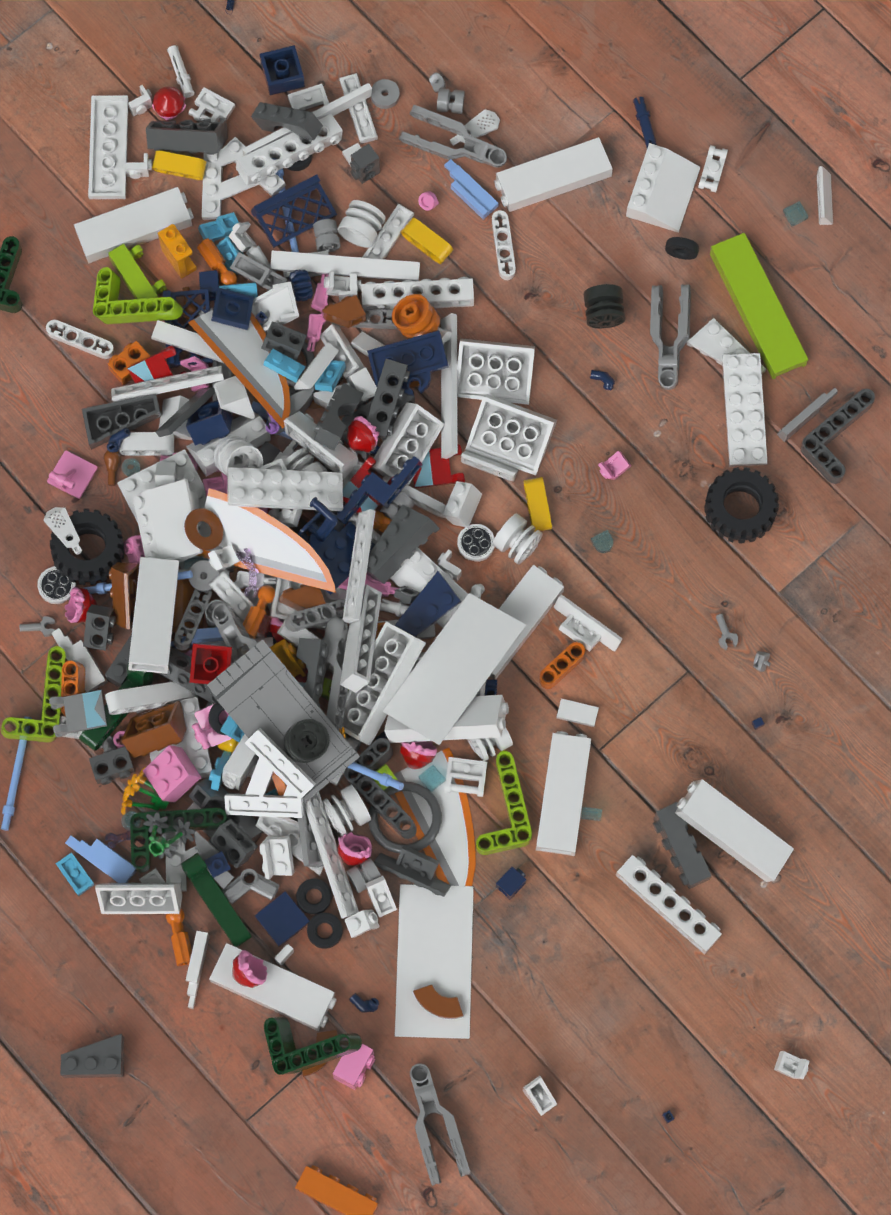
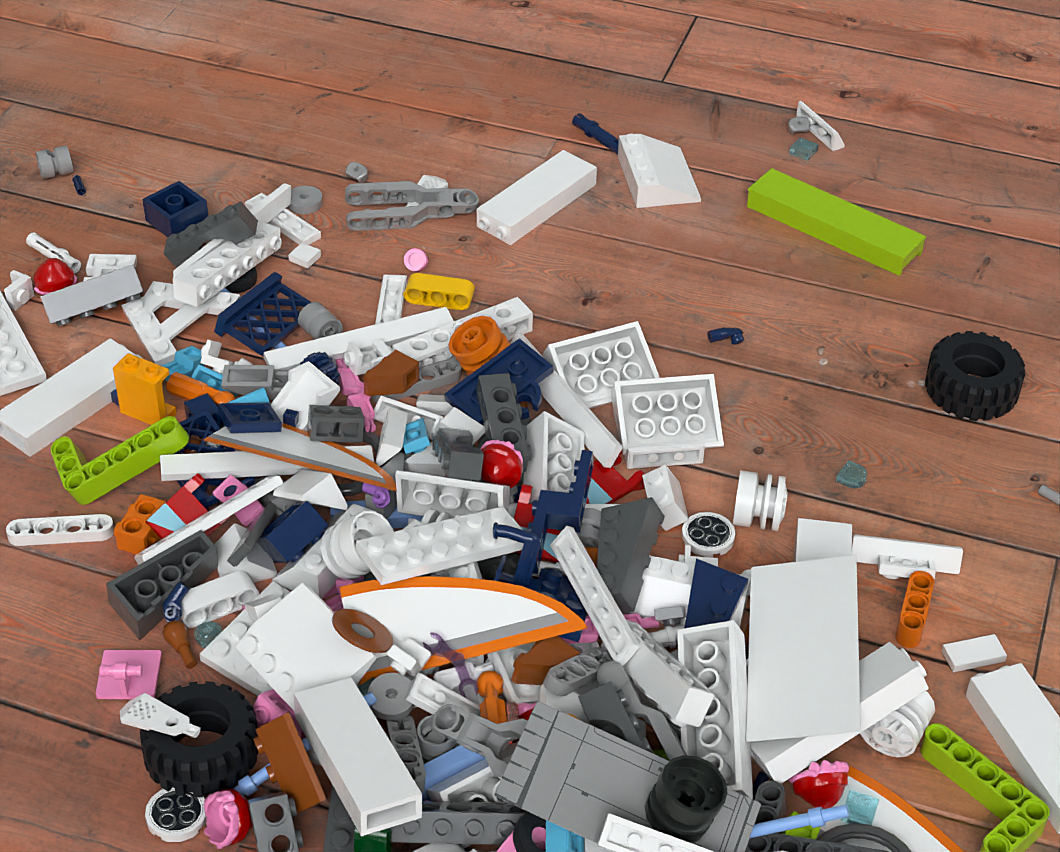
camera: 30 degrees left, 30 degrees down
(131, 273) = (89, 433): lime brick -> none
(139, 169) = (49, 345): white bracket -> none
(179, 165) = (99, 325): yellow beam -> none
(208, 662) = (469, 781): red slope -> none
(284, 365) = (360, 444): medium azure plate -> none
(361, 223) = (355, 295): white wheel -> none
(364, 164) = (324, 248): dark grey brick -> none
(444, 97) = (387, 172): light grey wheel -> none
(466, 770) = (898, 777): white plate -> none
(471, 191) = (456, 240): light blue piece -> none
(503, 245) = (544, 284): white beam -> none
(537, 504) = (742, 456): yellow beam -> none
(604, 306) = (680, 269): pearl dark grey wheel -> none
(614, 466) = (806, 399): bright pink bracket -> none
(669, 356) = (785, 291): light grey piece -> none
(682, 248) = (714, 192): black tyre -> none
(713, 169) = (694, 144): white plate -> none
(717, 341) = (827, 265): white wing -> none
(744, 409) = (896, 300): white plate -> none
(806, 415) = (962, 285): light grey piece -> none
(808, 186) = (798, 124): none -> light grey piece
(833, 431) = (1006, 308): dark grey beam -> none

